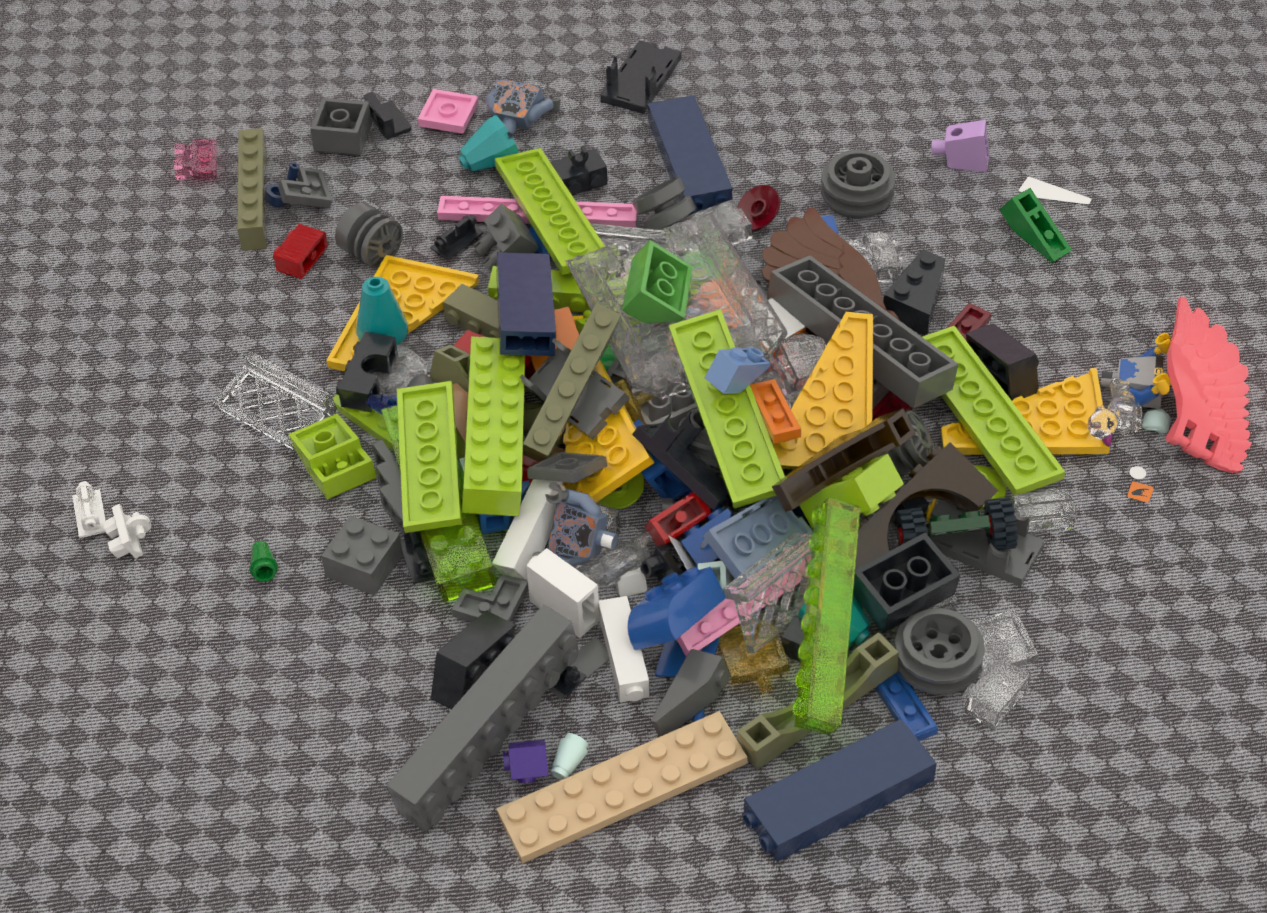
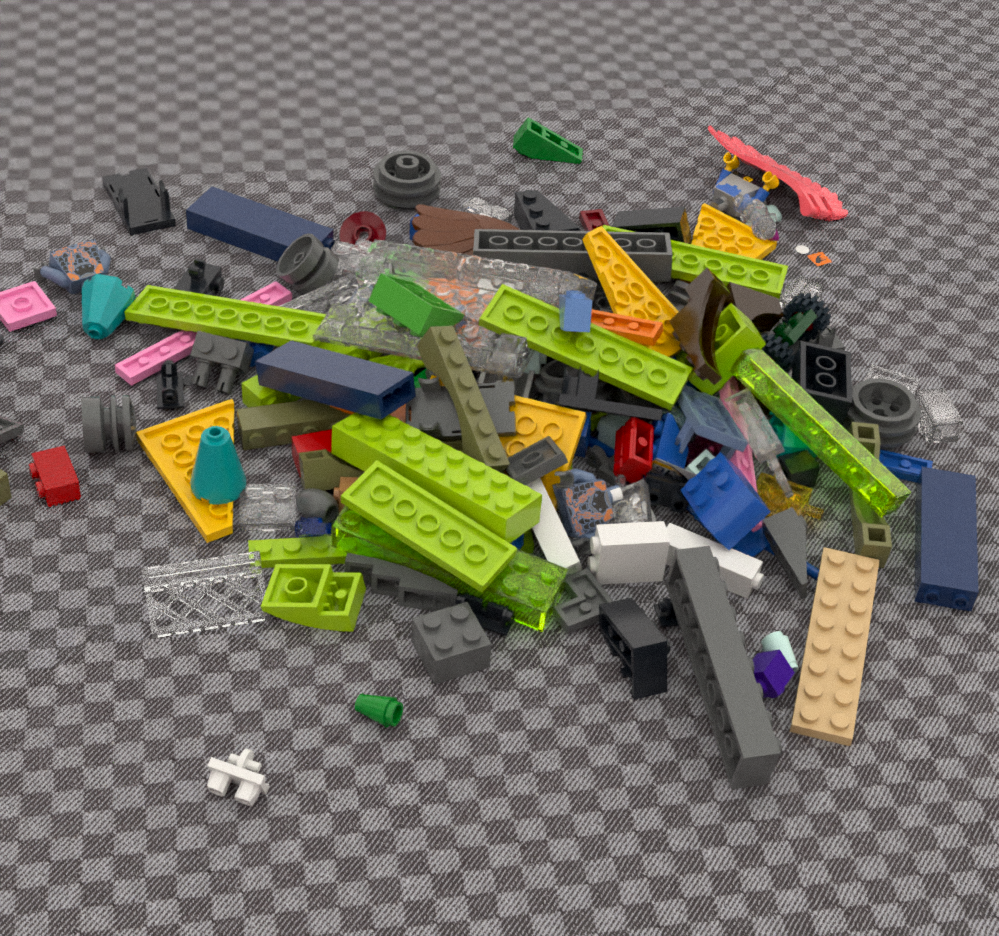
camera: 55 degrees left, 5 degrees down
(88, 510) = (176, 791): white hinge -> none
(371, 355) = (272, 531): black arch -> none
(965, 146) = (439, 119): lavender torso -> none
(1047, 191) = (514, 124): white sticker -> none

